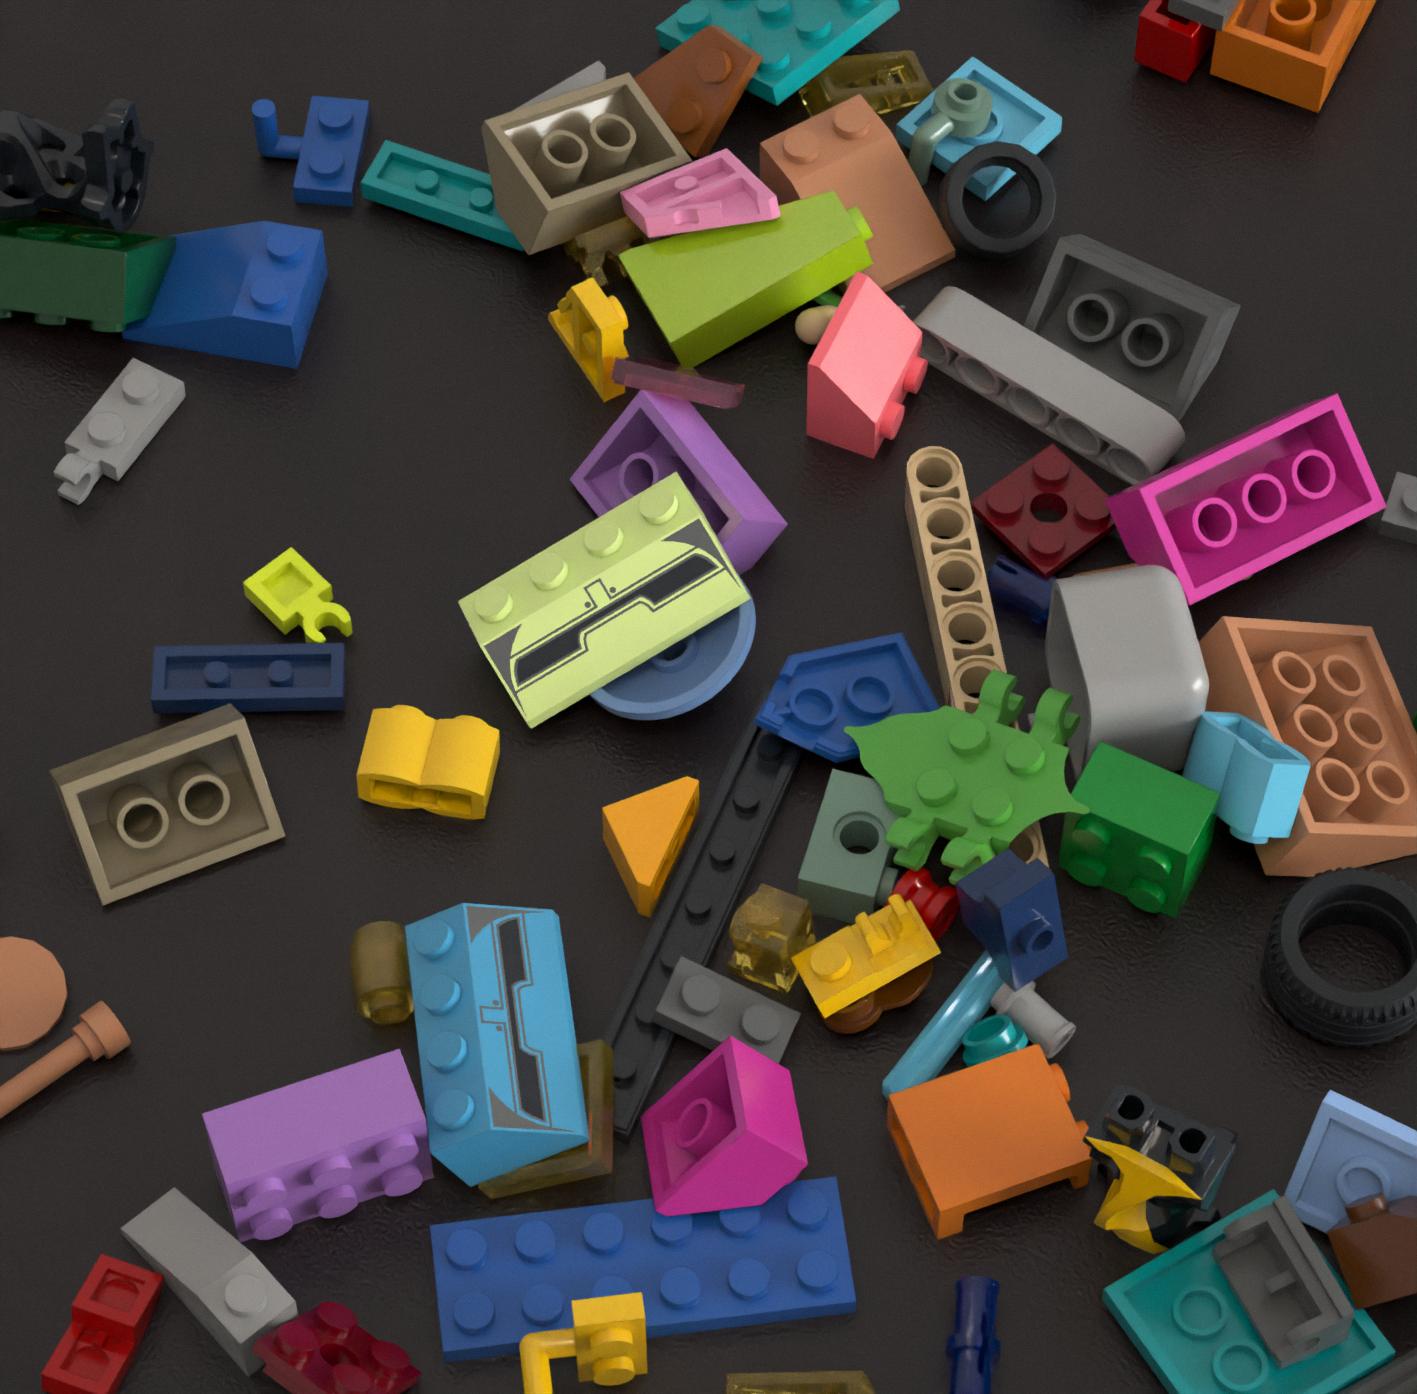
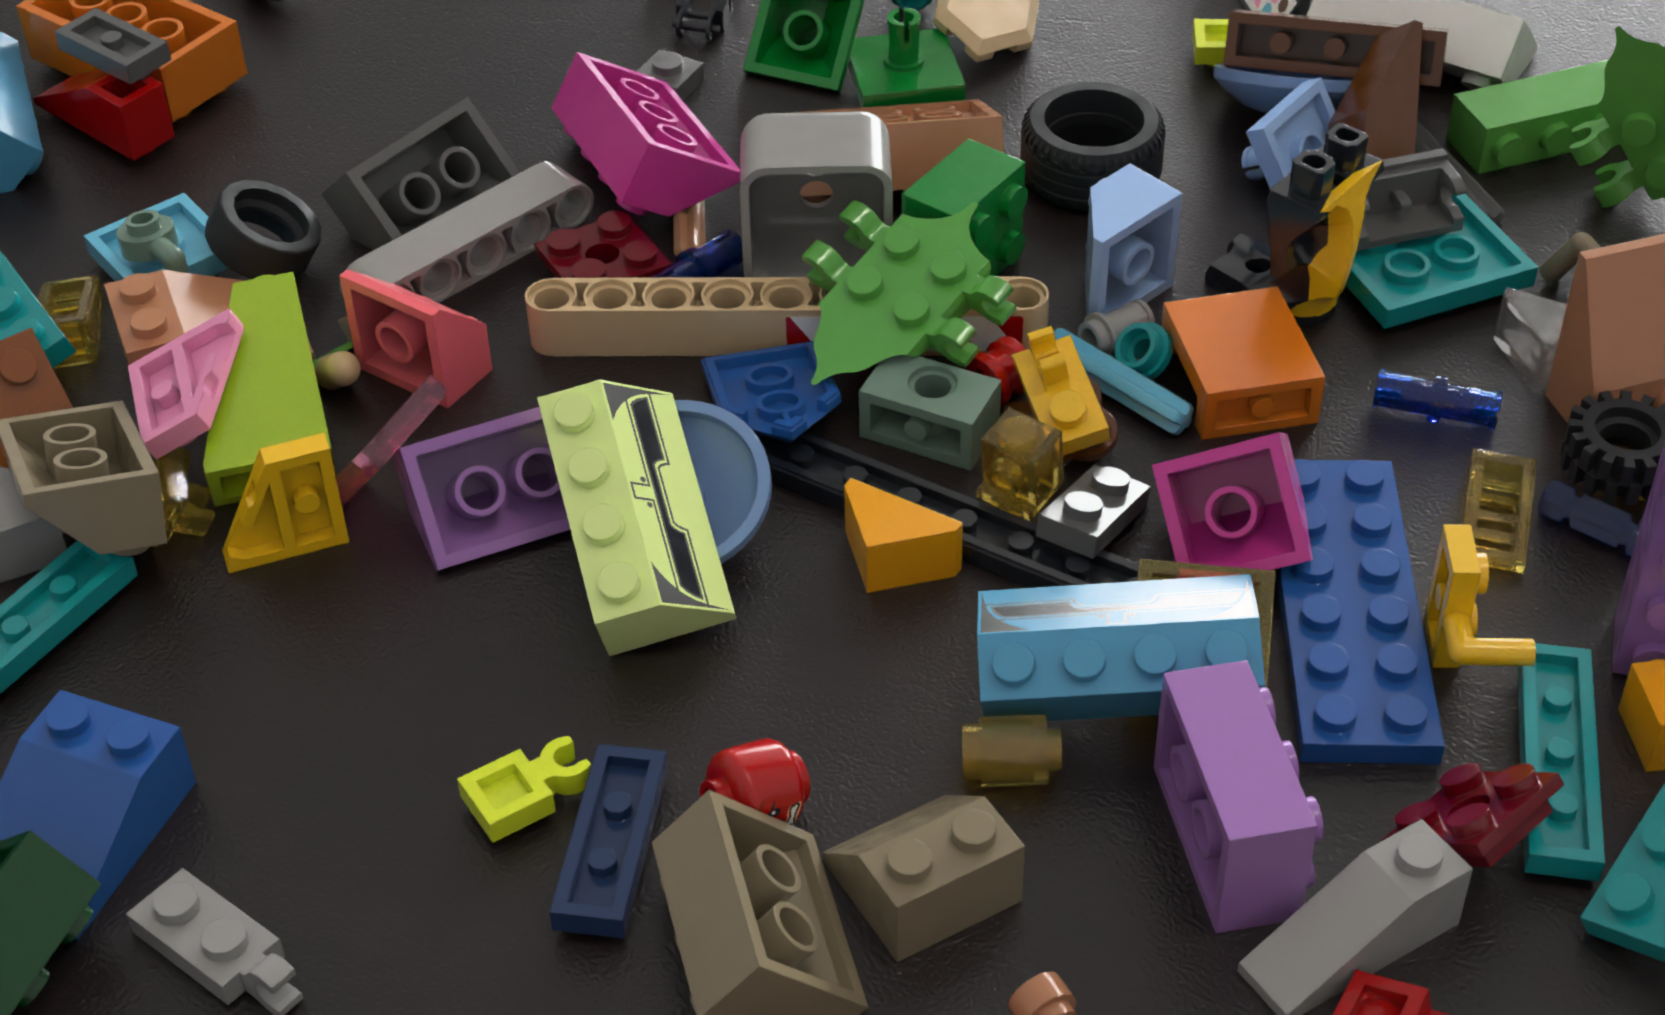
camera: 80 degrees left, 15 degrees down
(241, 921) = (931, 872): none -> dark tan slope
(309, 773) = (761, 777): none -> red head
(428, 762) = (761, 688): yellow brick -> none
(1014, 916) = (1055, 272): dark blue brick -> none
(1129, 991) = (1130, 239): none -> light blue slope
(1252, 771) = (937, 131): medium azure brick -> none

